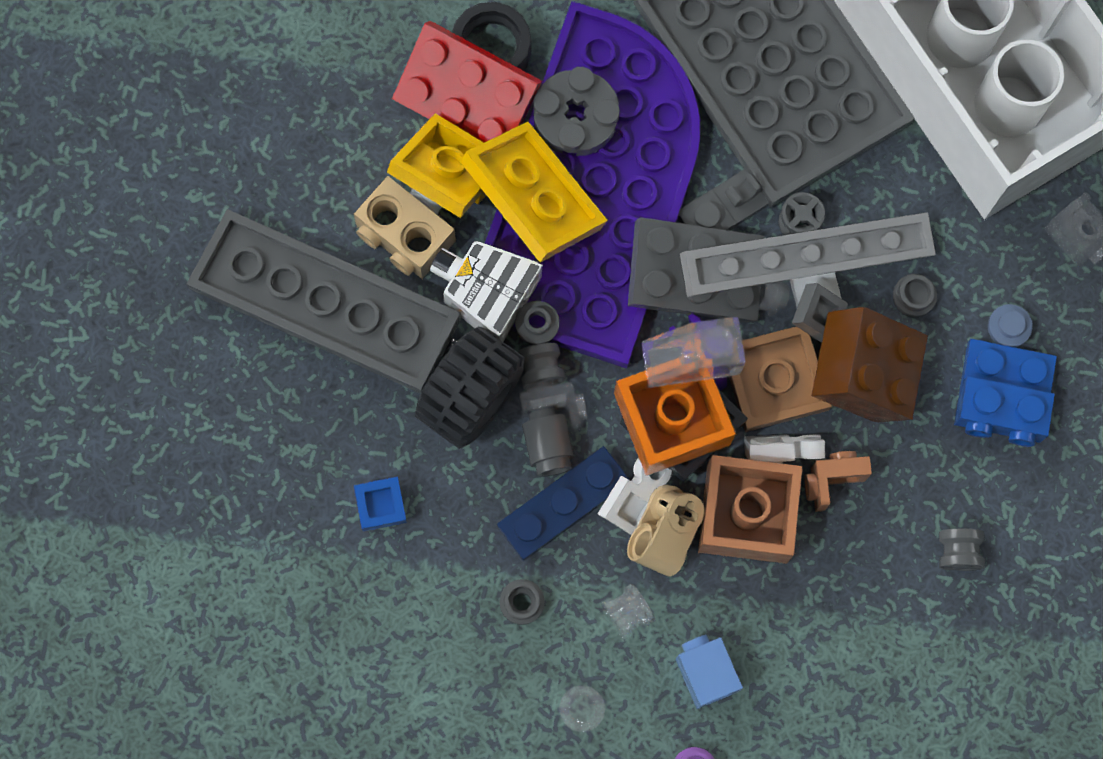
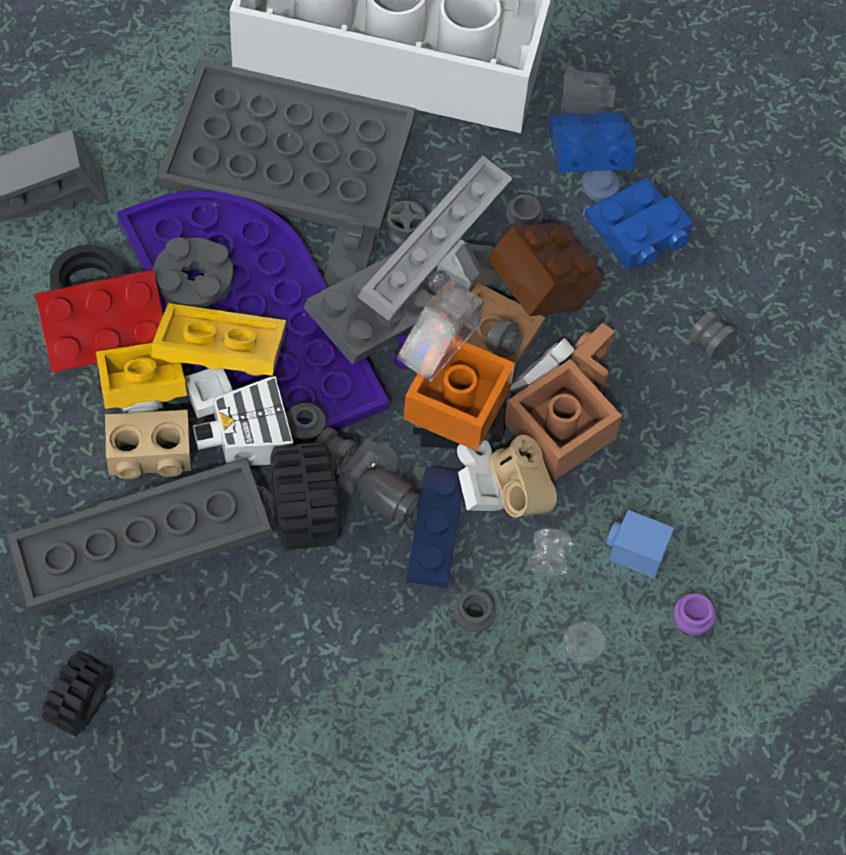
camera: 45 degrees left, 15 degrees down
(153, 389) = (77, 693): none -> black tyre
(380, 504) = (314, 632): blue plate -> none
(485, 225) = (204, 388): none -> white plate
(769, 397) = (504, 338): none -> dark grey plate
(1038, 282) = (592, 142): none -> blue plate

